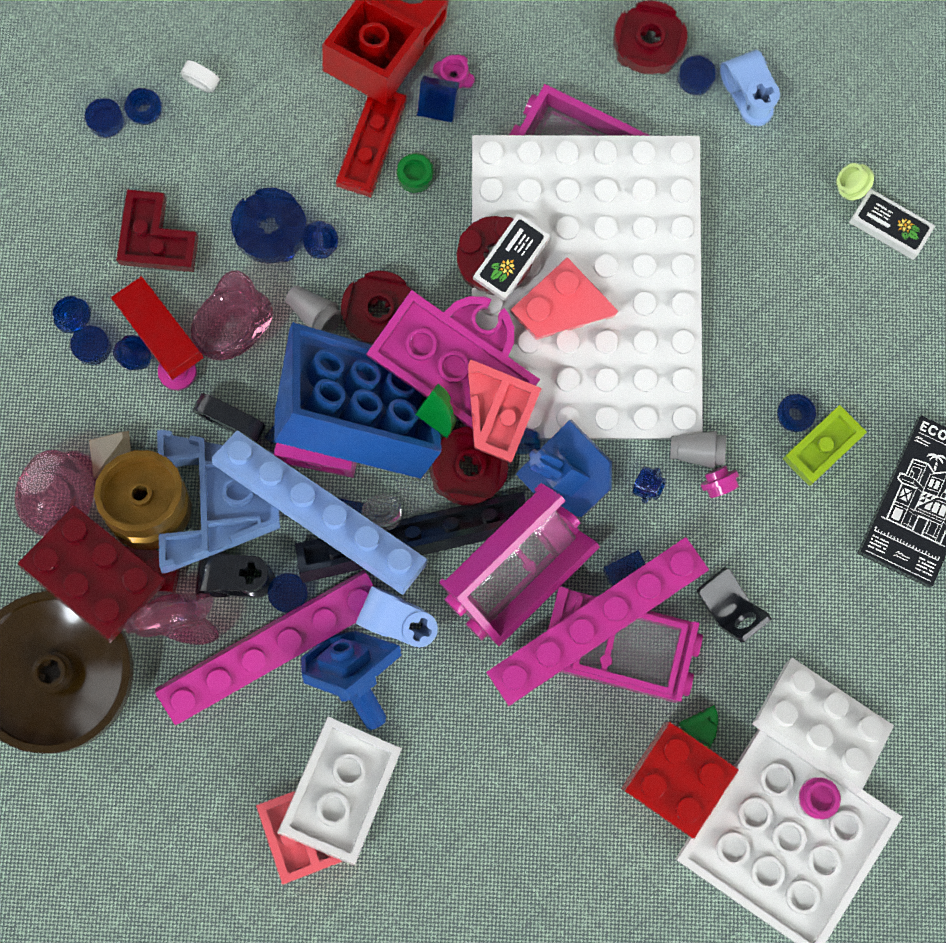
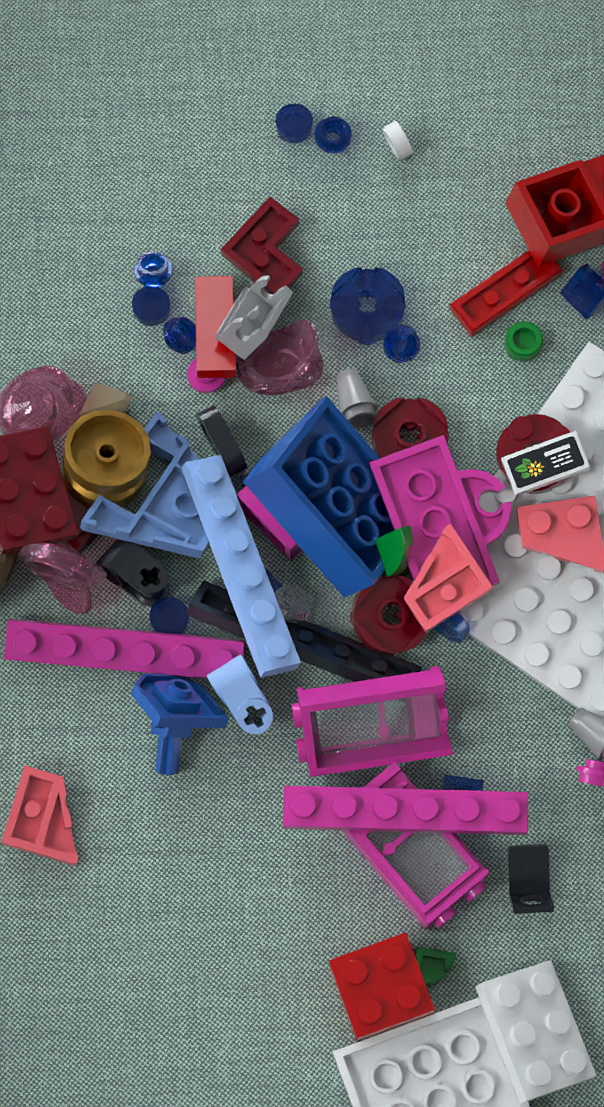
camera: 35 degrees right, 5 degrees down
(183, 298) = (252, 317): none -> light grey hinge
(340, 791) = (99, 800): white plate -> none
(570, 467) = (474, 675): blue piece -> none
(649, 484) = (533, 733): clear blue plate -> none
(819, 798) = (486, 1083): dark pink plate -> none

